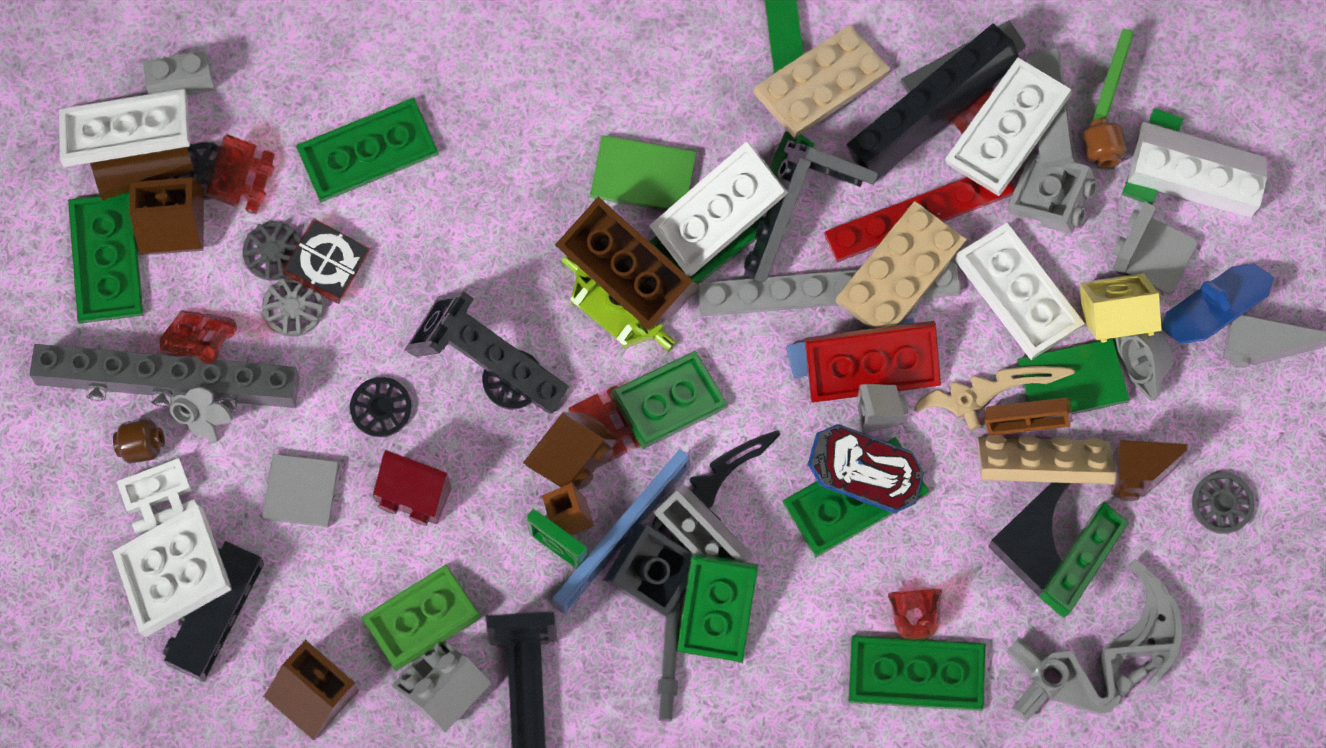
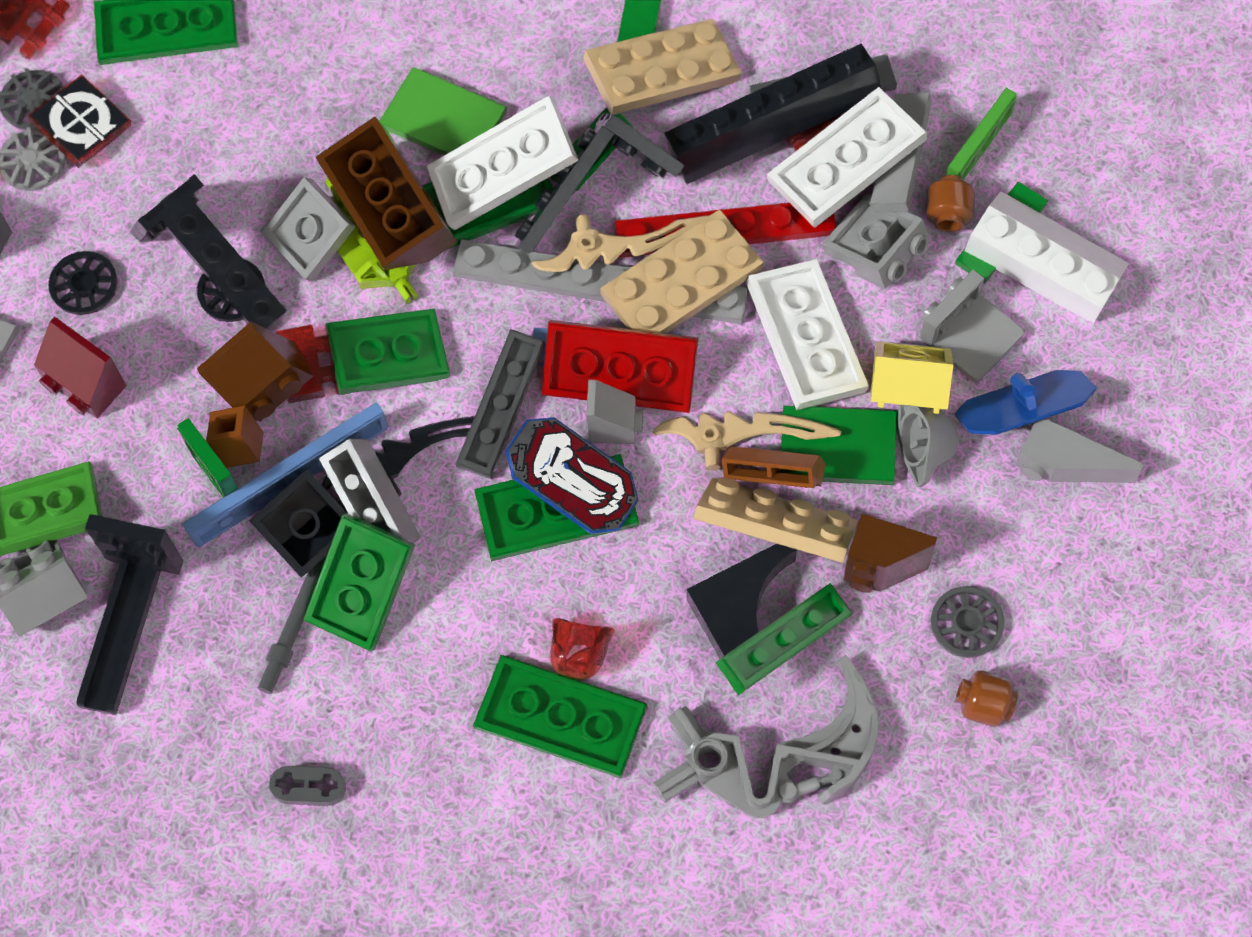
camera: 20 degrees right, 5 degrees down
(565, 309) = (308, 229): none -> light grey plate
(781, 420) = (500, 404): none -> dark grey tile
(812, 260) = (589, 244): none -> tan piece
(1258, 563) = (987, 698): none -> dark orange head

